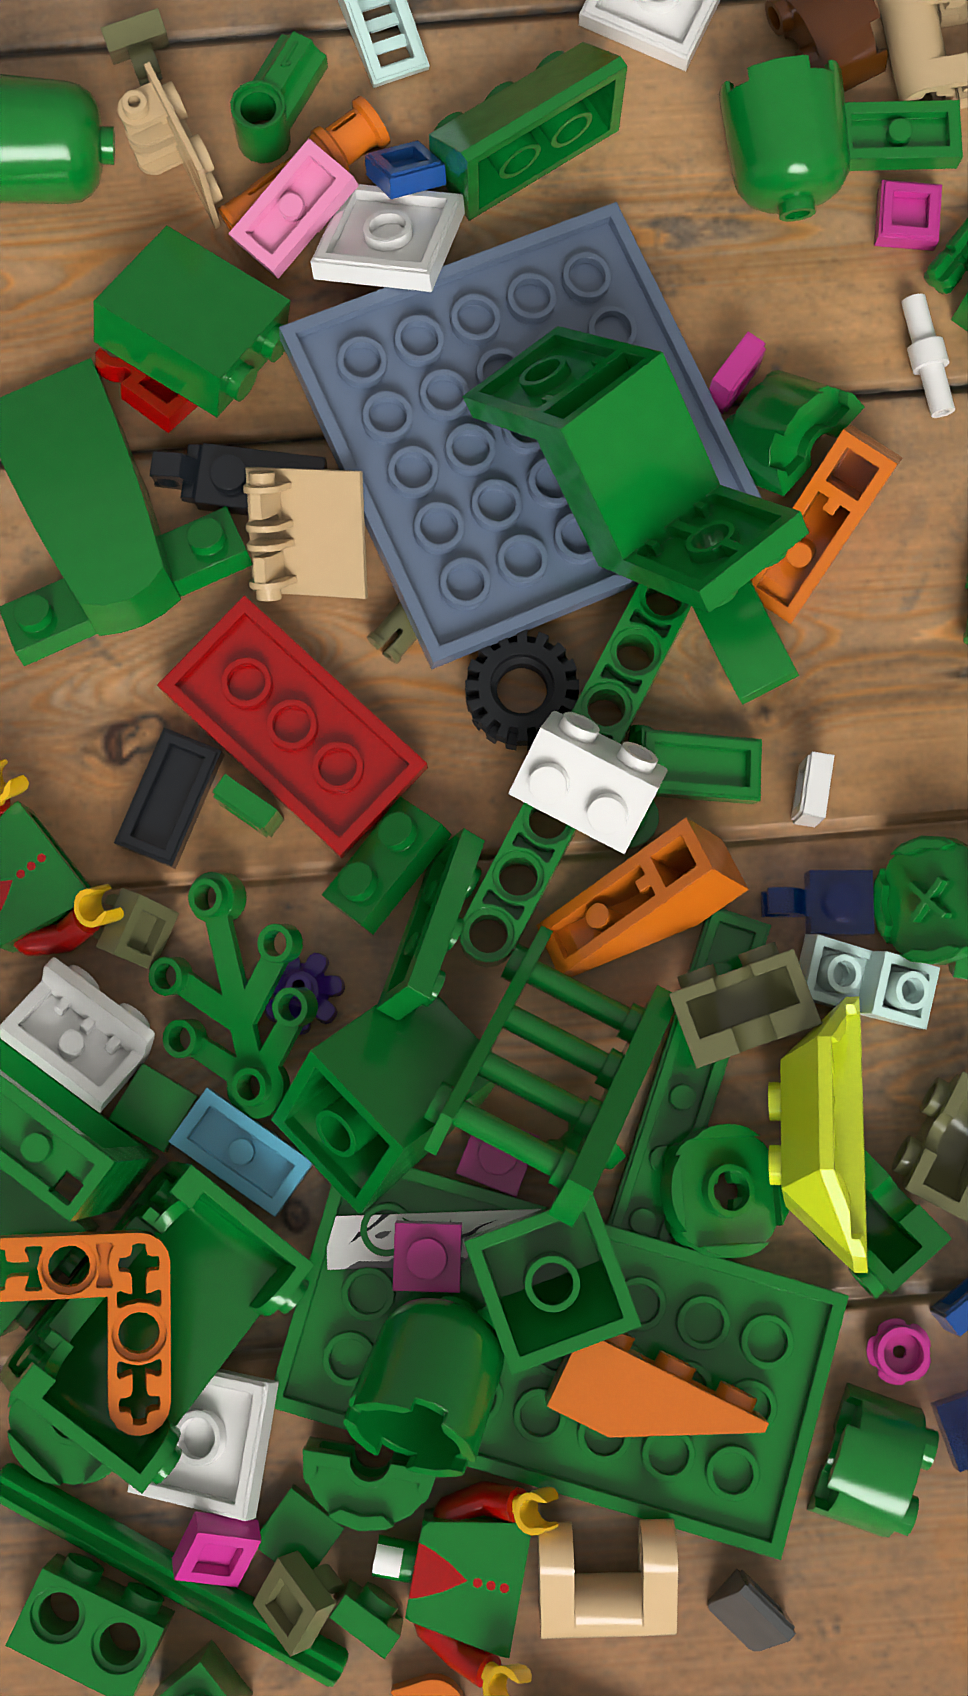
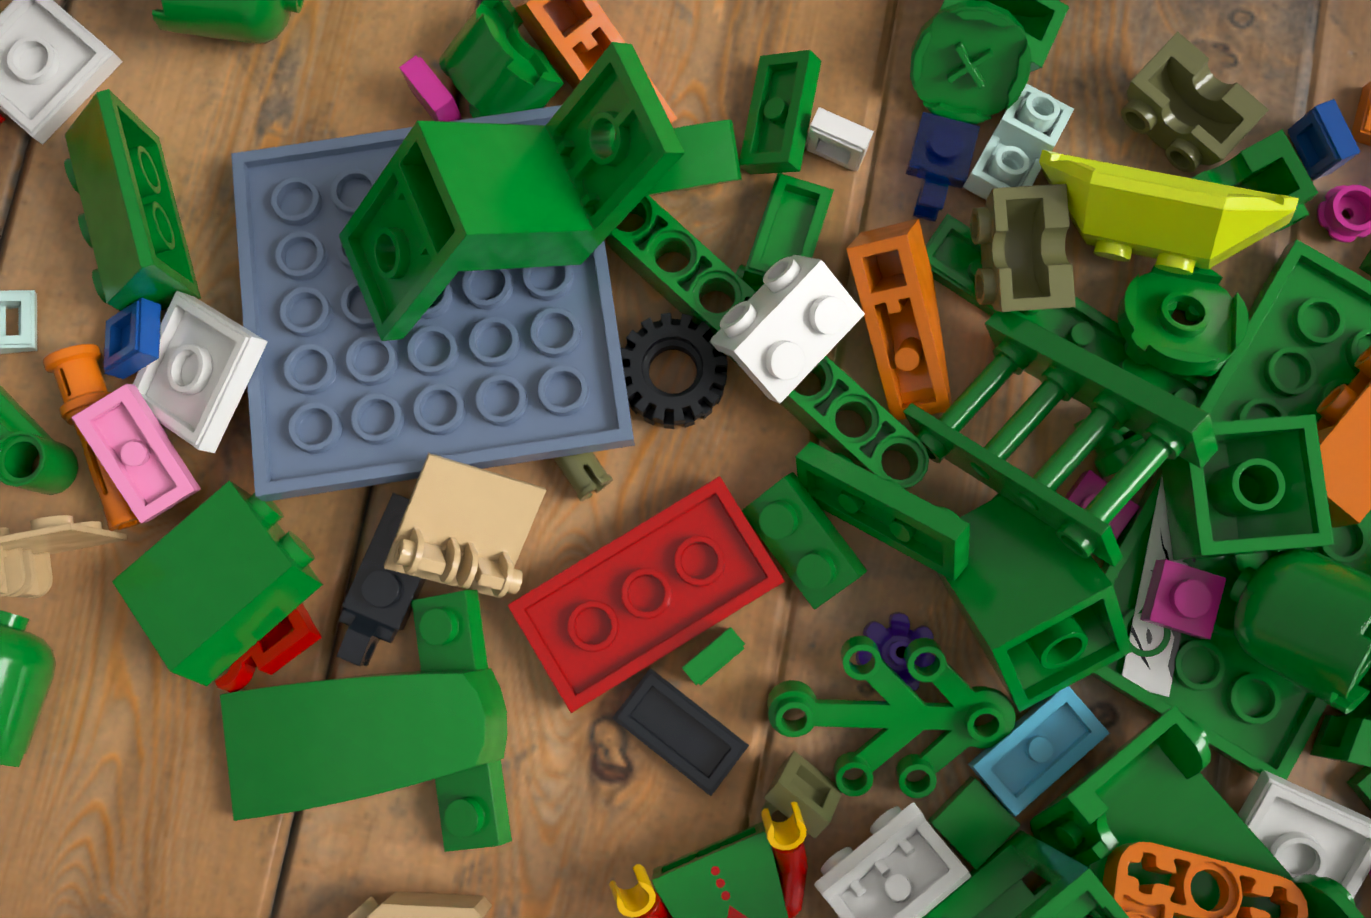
camera: 75 degrees left, 0 degrees up
(824, 722) = (780, 112): none -> green plate

